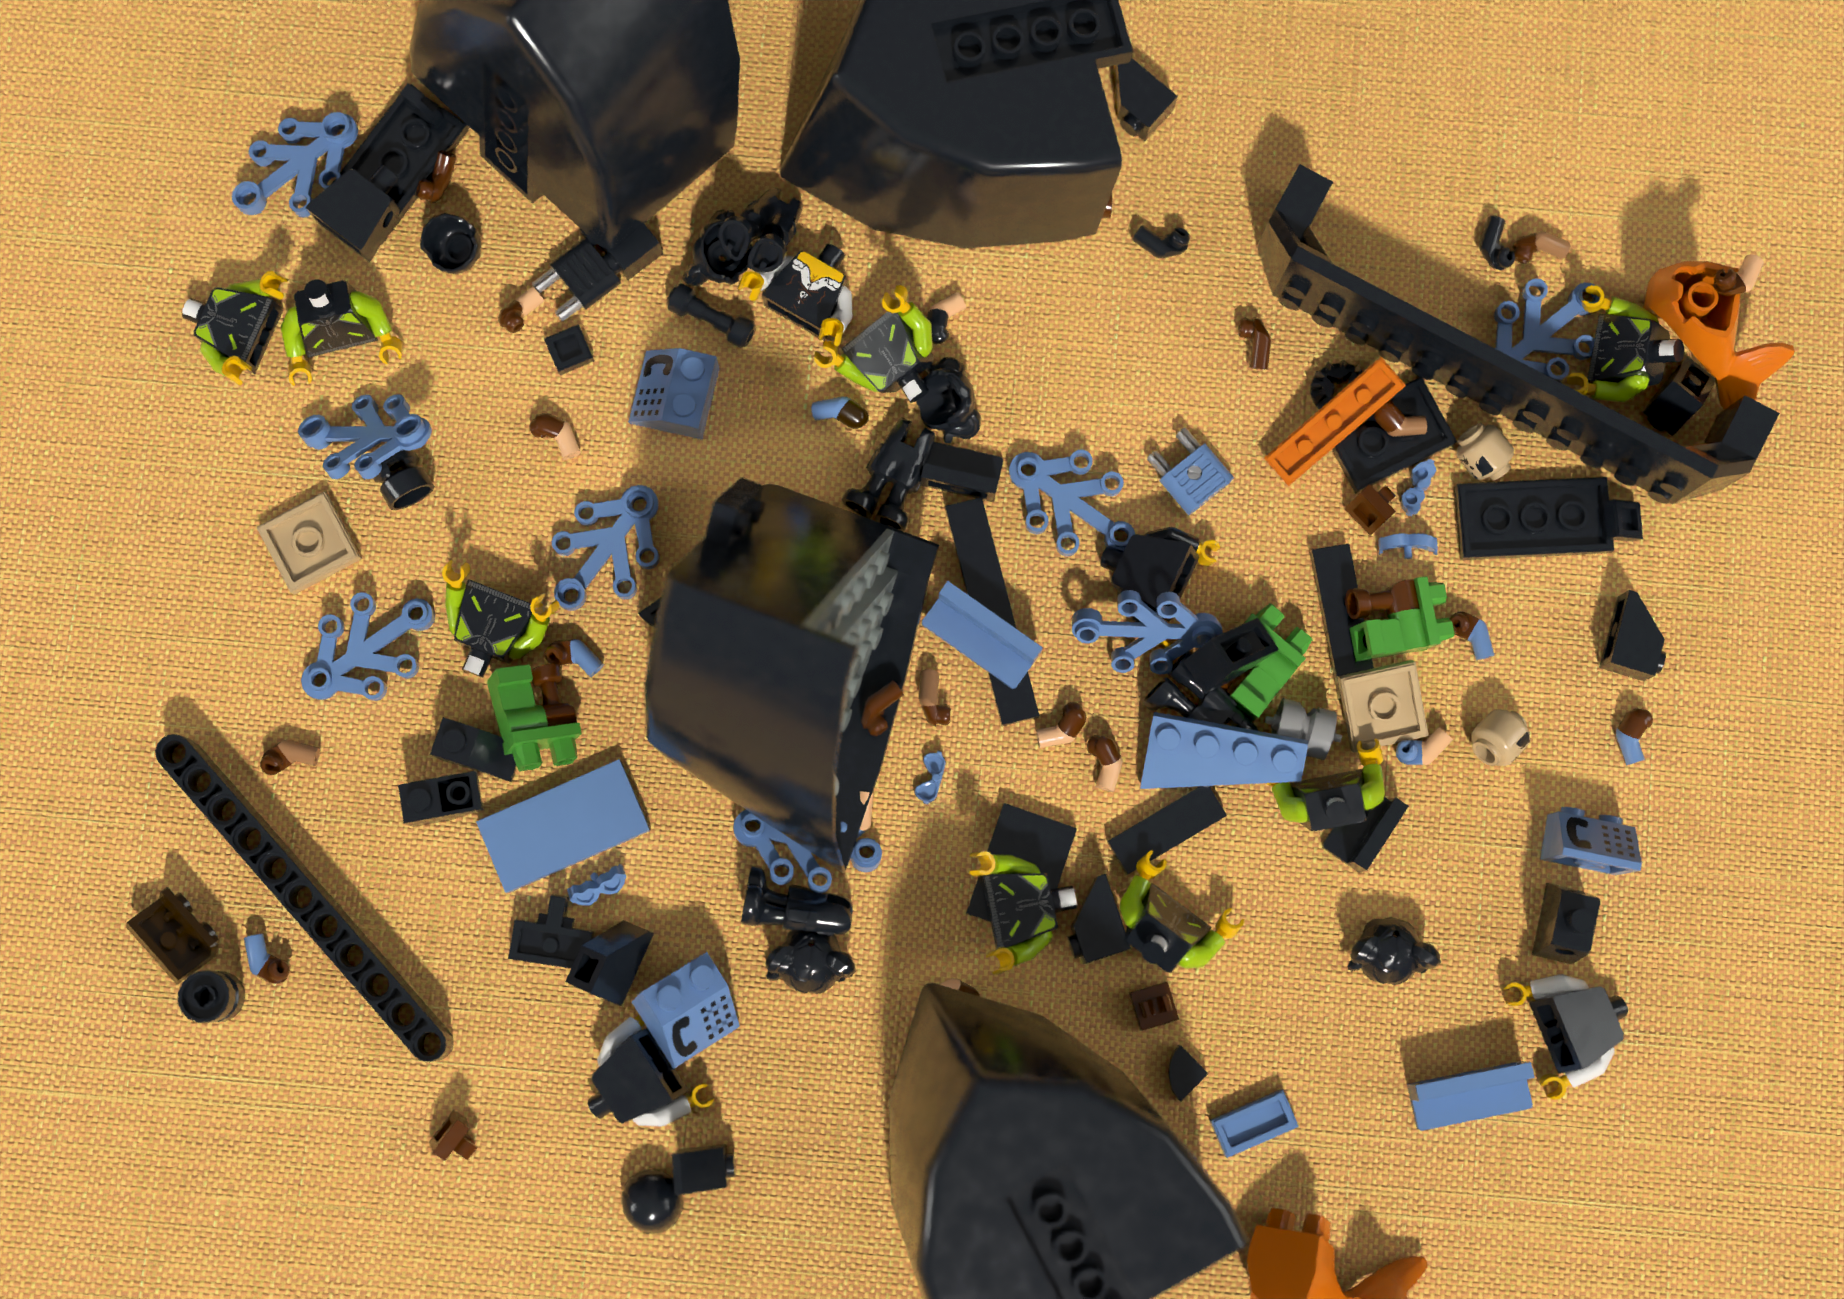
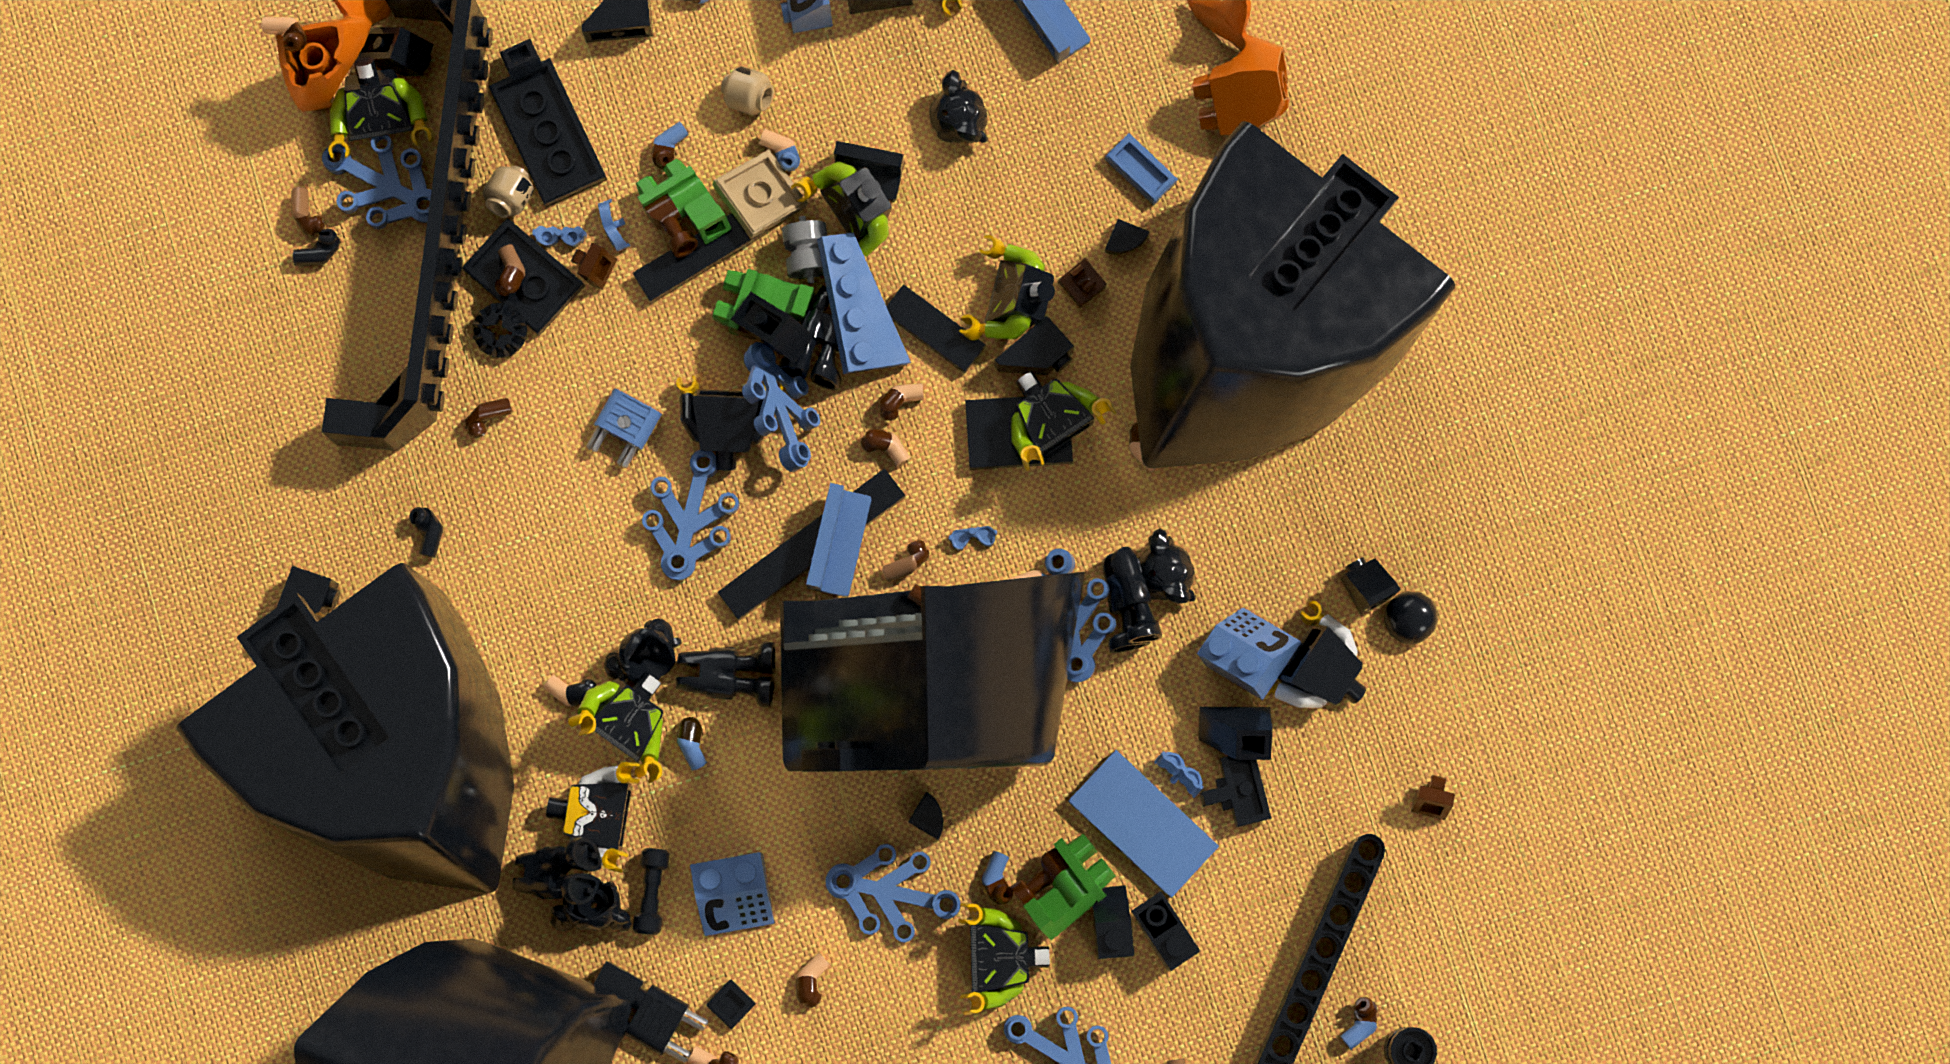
camera: 110 degrees left, 0 degrees up
(962, 471) = (700, 616): black panel -> none
(1334, 421) = (533, 322): orange tile -> none

